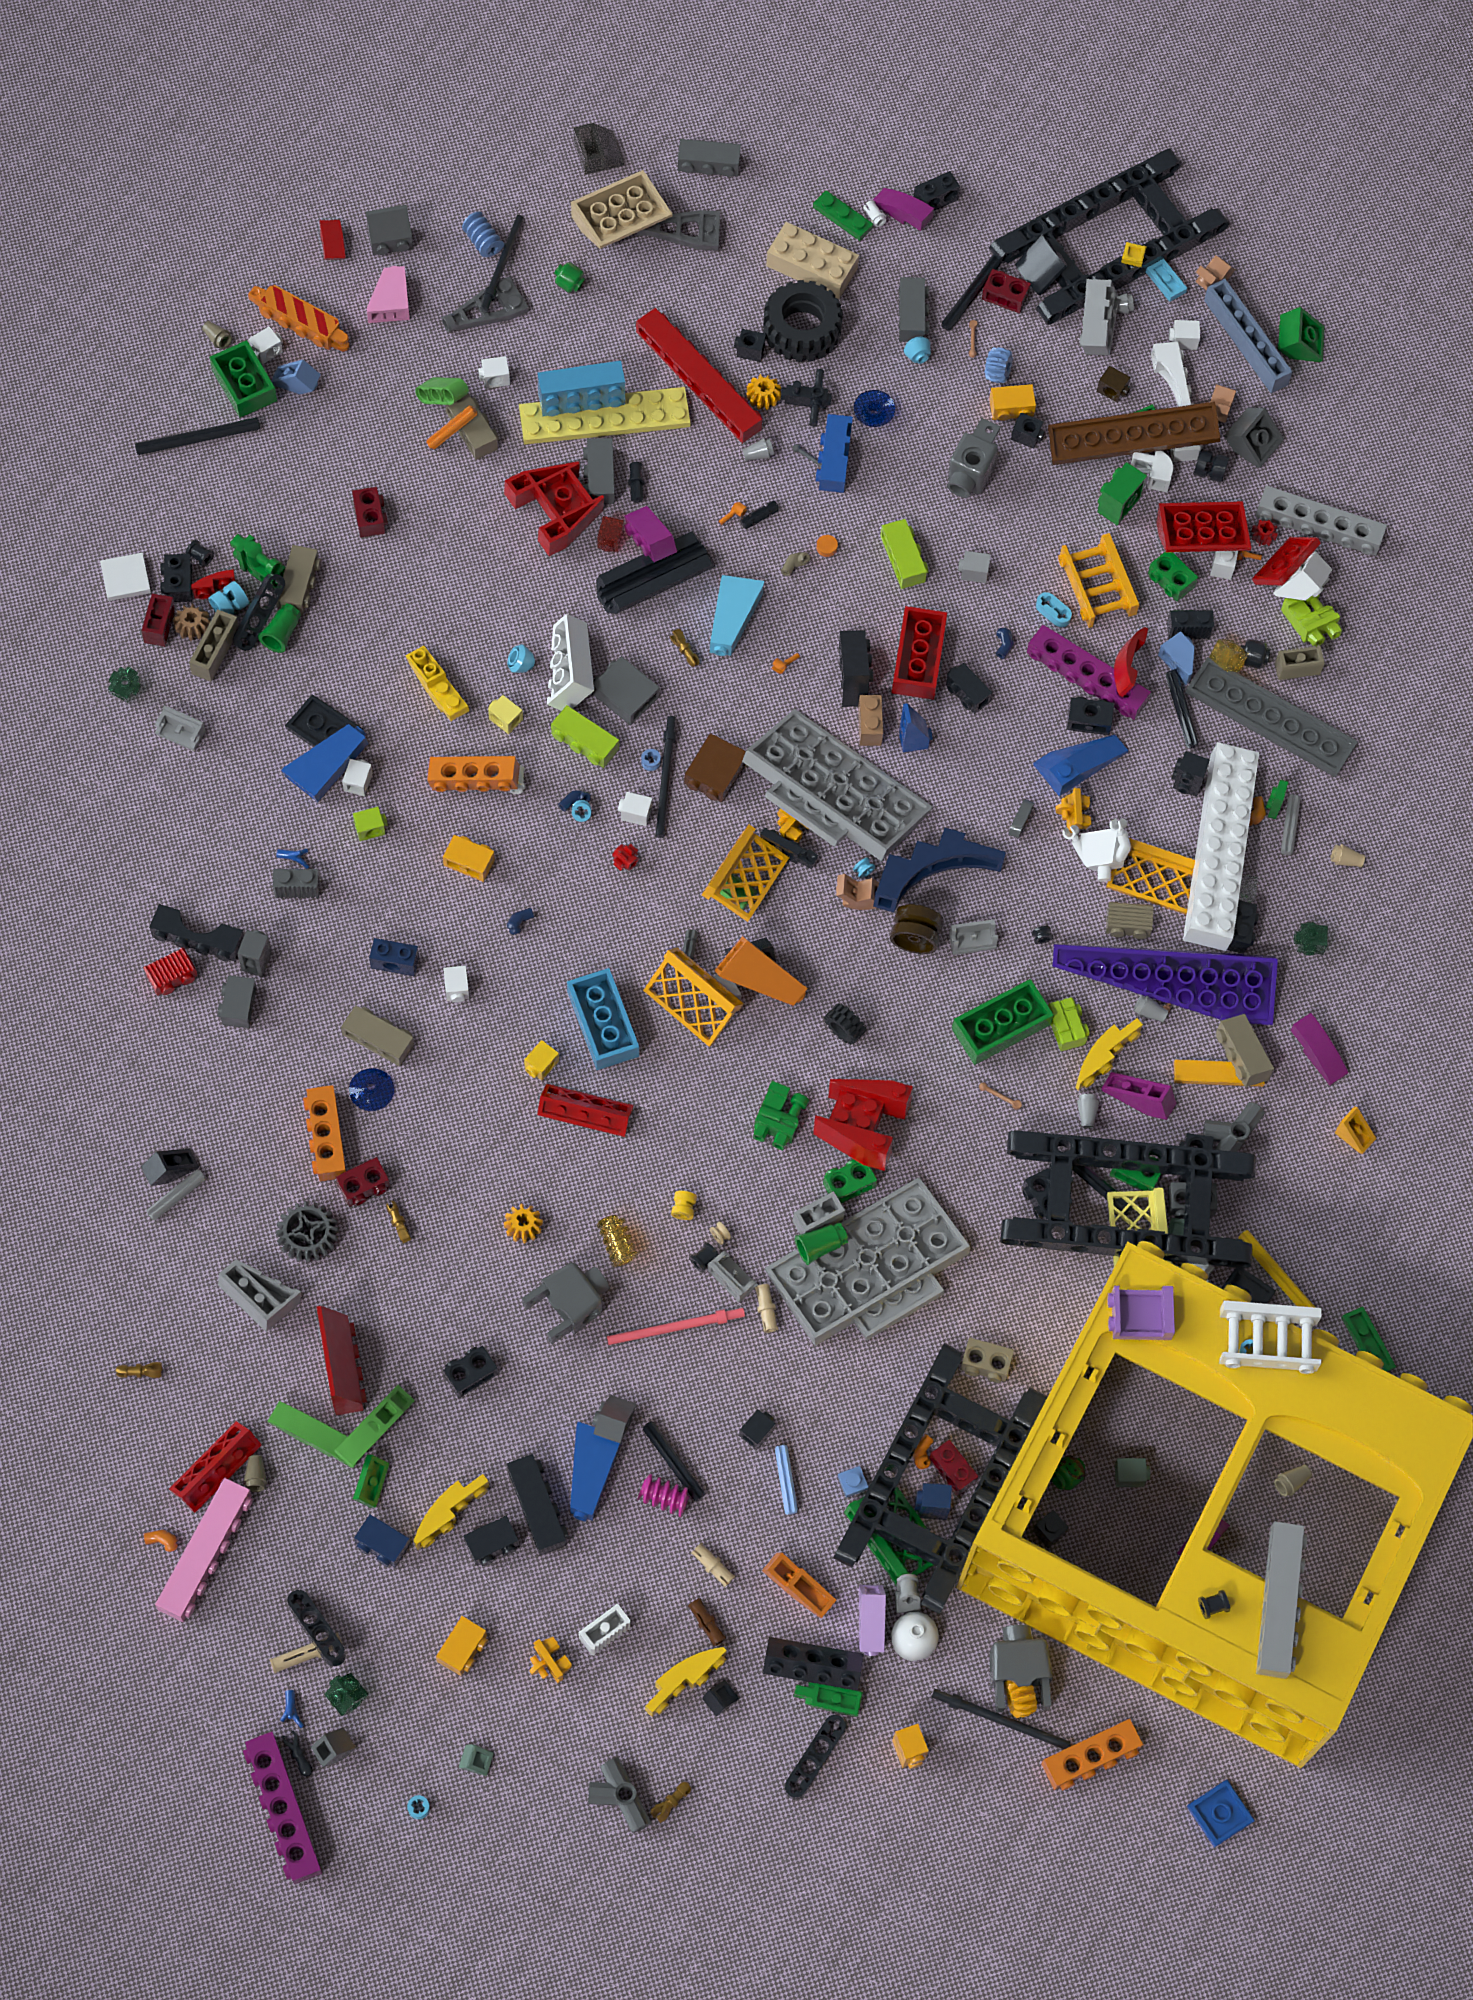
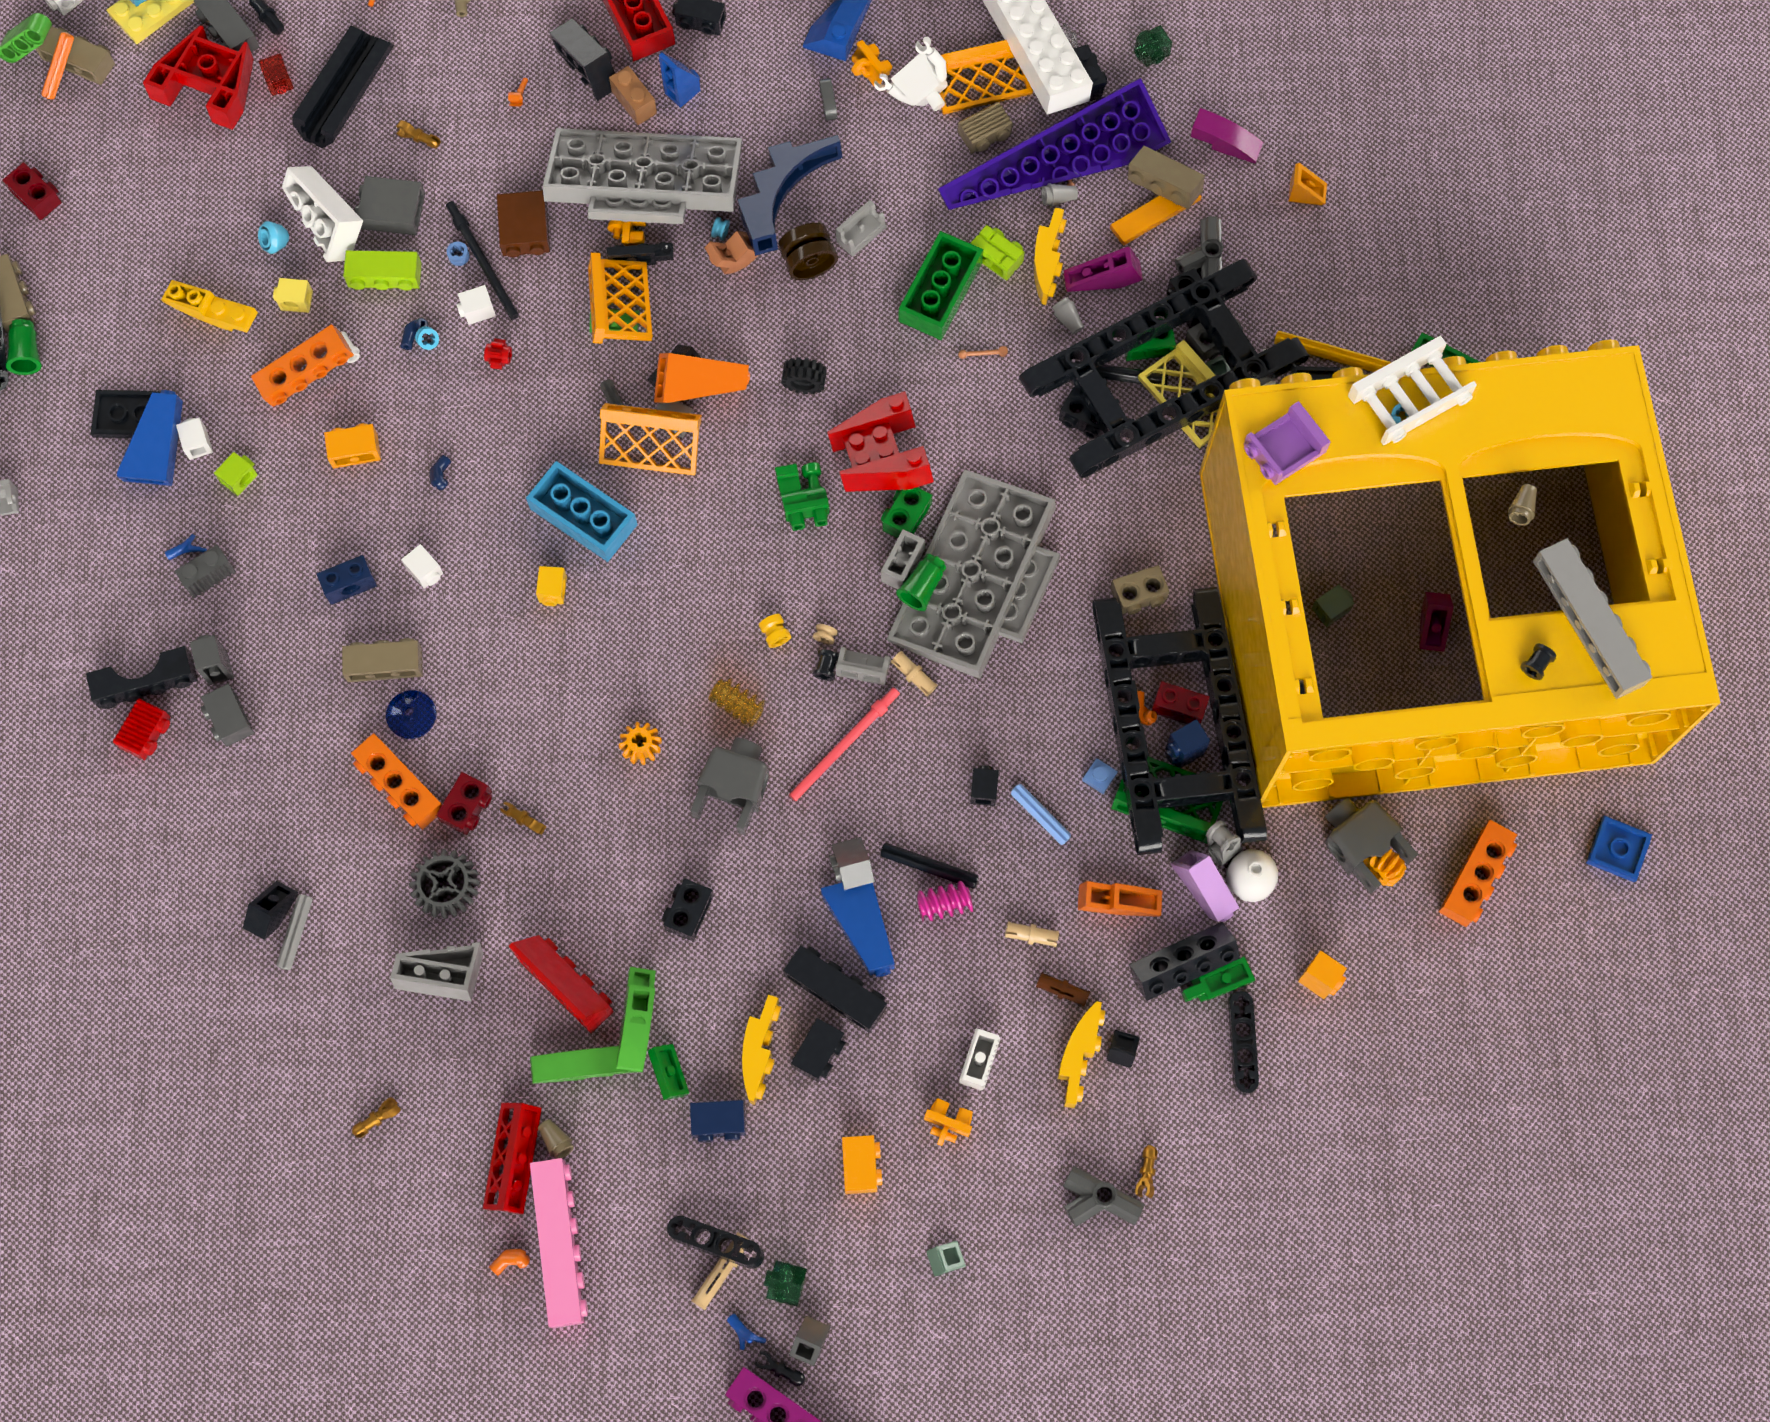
camera: 30 degrees left, 5 degrees up
(425, 1805) = (920, 1346): medium azure bush -> none
(584, 1111) = (623, 604): red fence -> none
(649, 534) = (314, 50): magenta brick -> none
(734, 608) = (438, 72): medium azure slope -> none
(955, 1701) = (1330, 908): black bar -> none
(1042, 934) = (919, 188): black bush -> none

